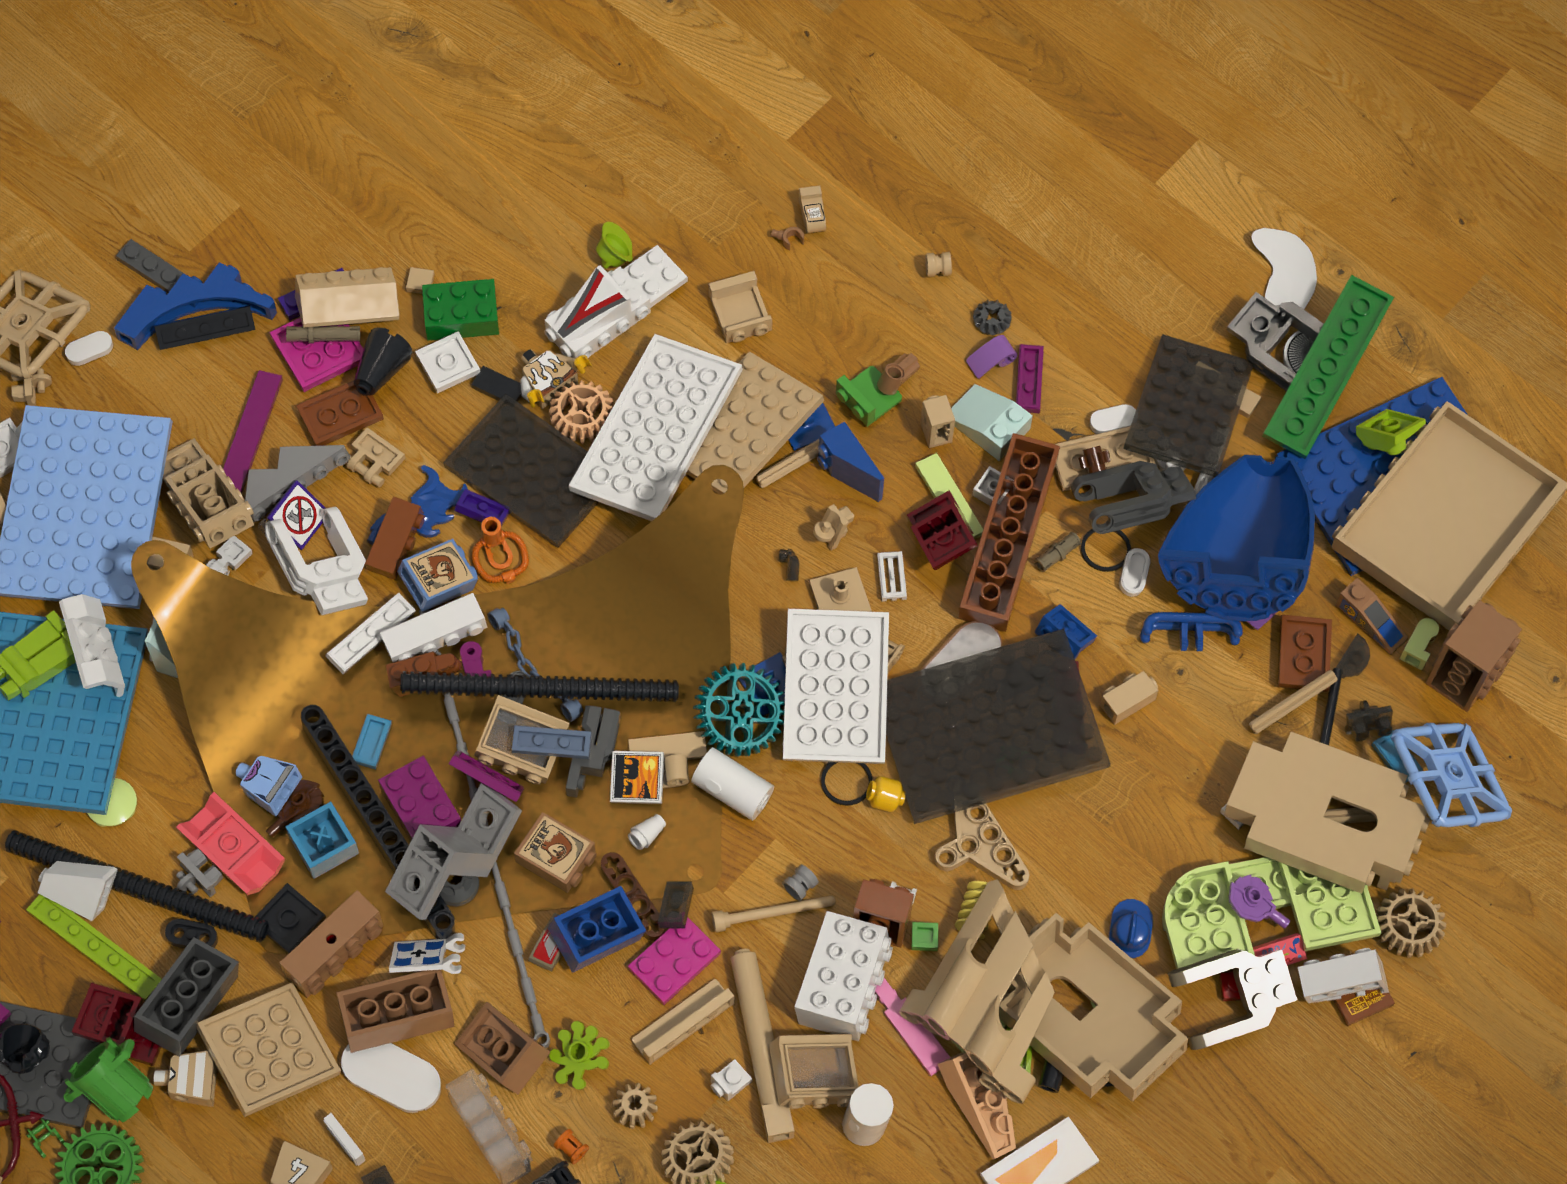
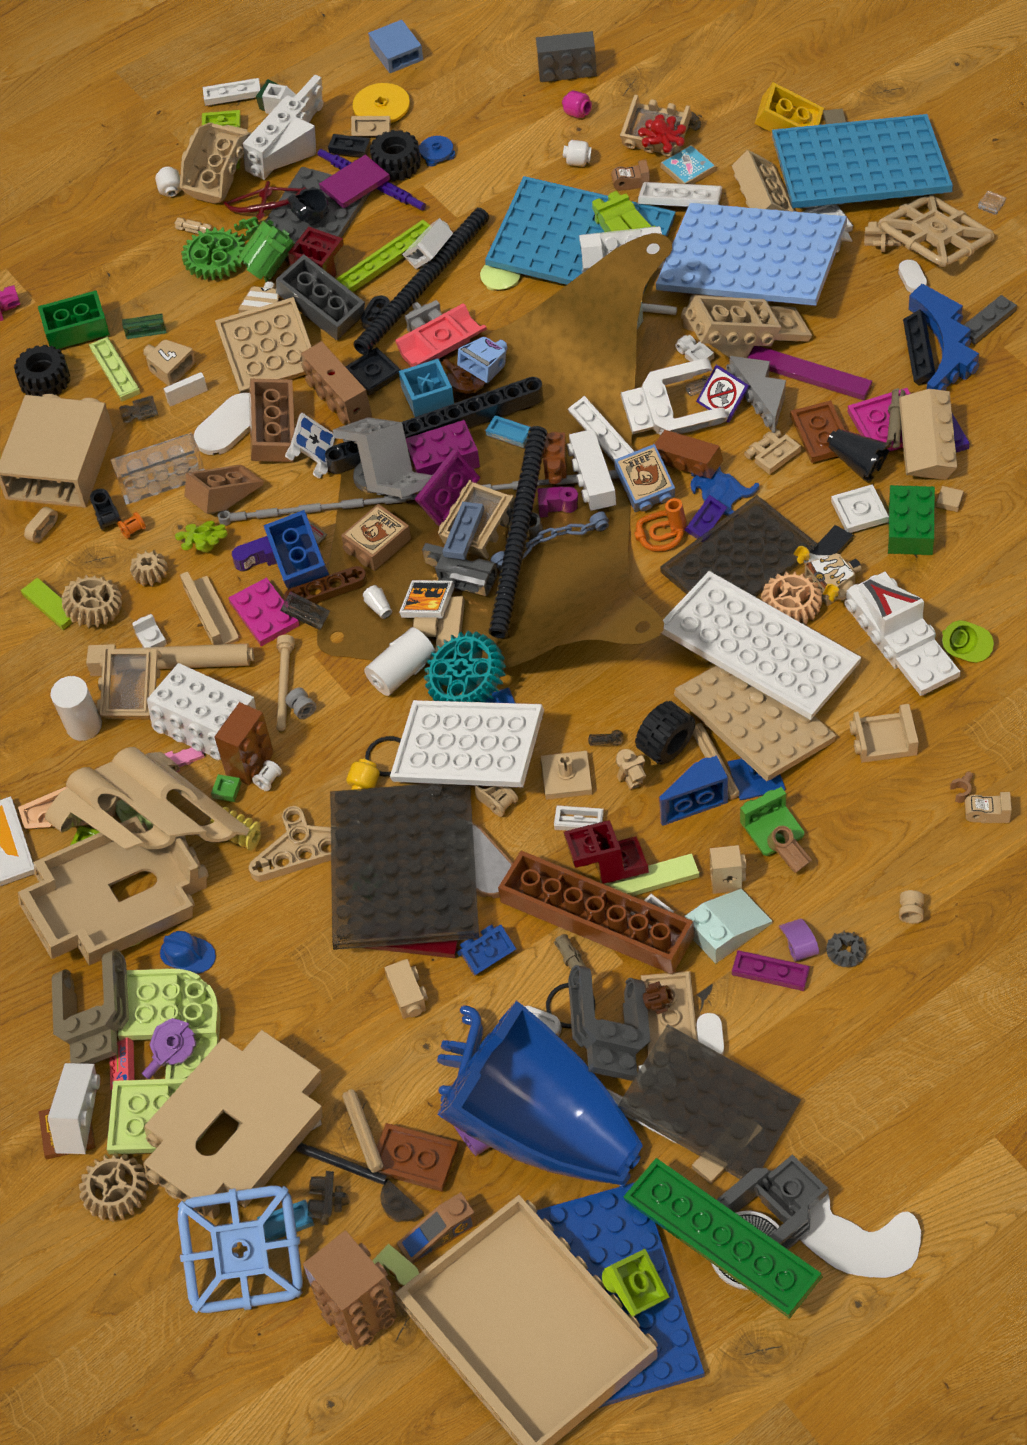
camera: 110 degrees right, 10 degrees down
(597, 992) = (253, 554): none -> dark purple leg
(787, 497) = (665, 732): none -> black tyre

